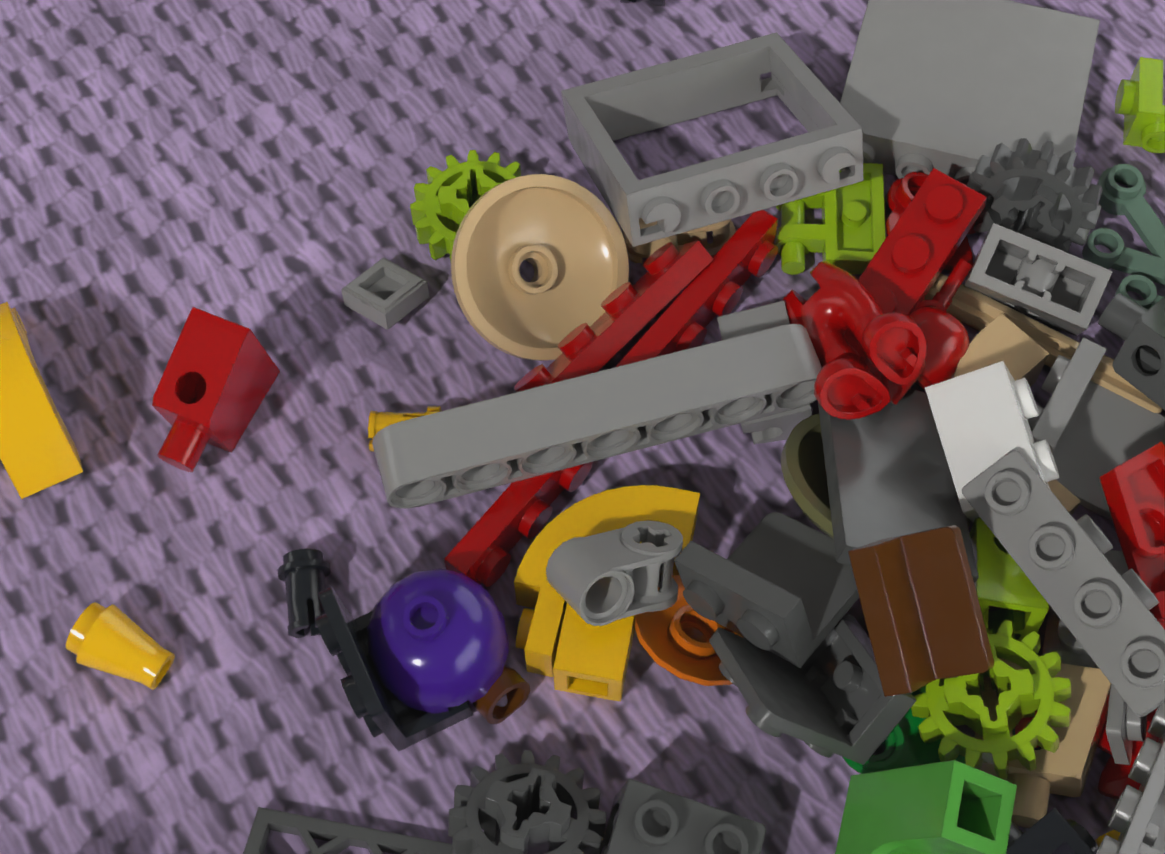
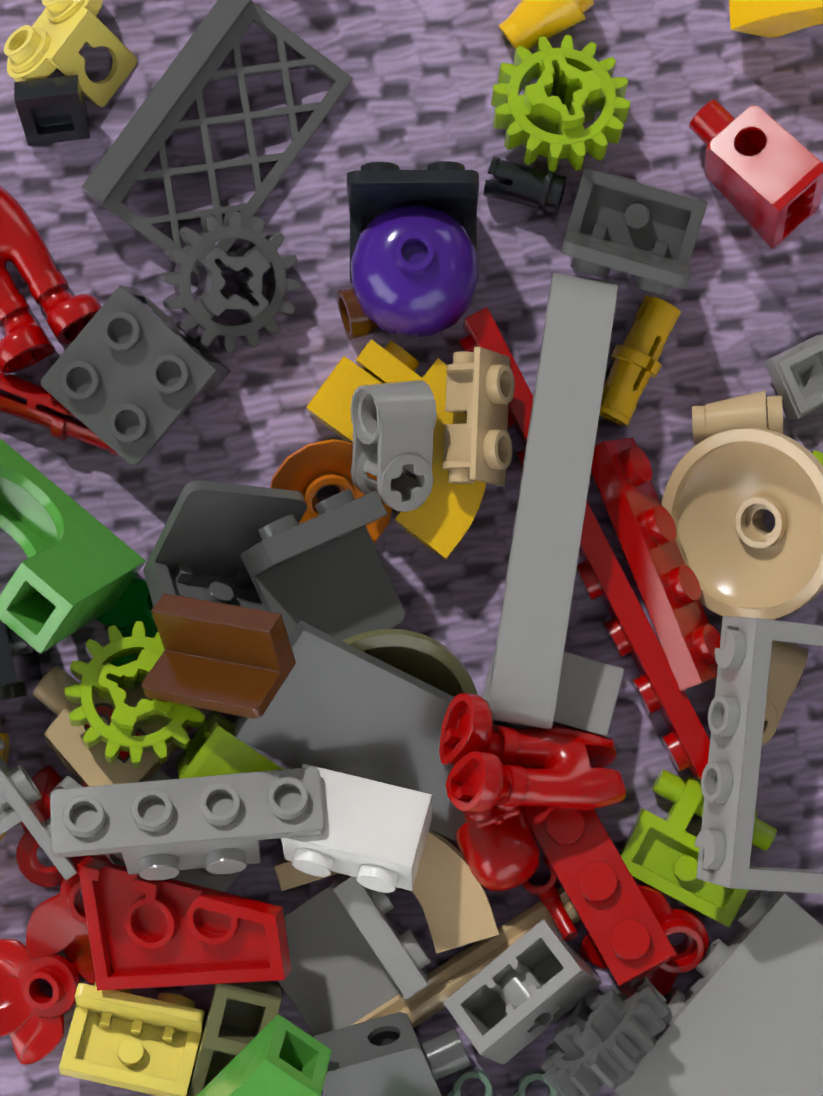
camera: 120 degrees right, 25 degrees up
(208, 581) = (543, 120): none -> lime gear
(316, 472) = (633, 230): none -> dark grey bracket
(447, 326) = (744, 411): none -> tan cone
(532, 518) = (482, 388): none -> tan hinge

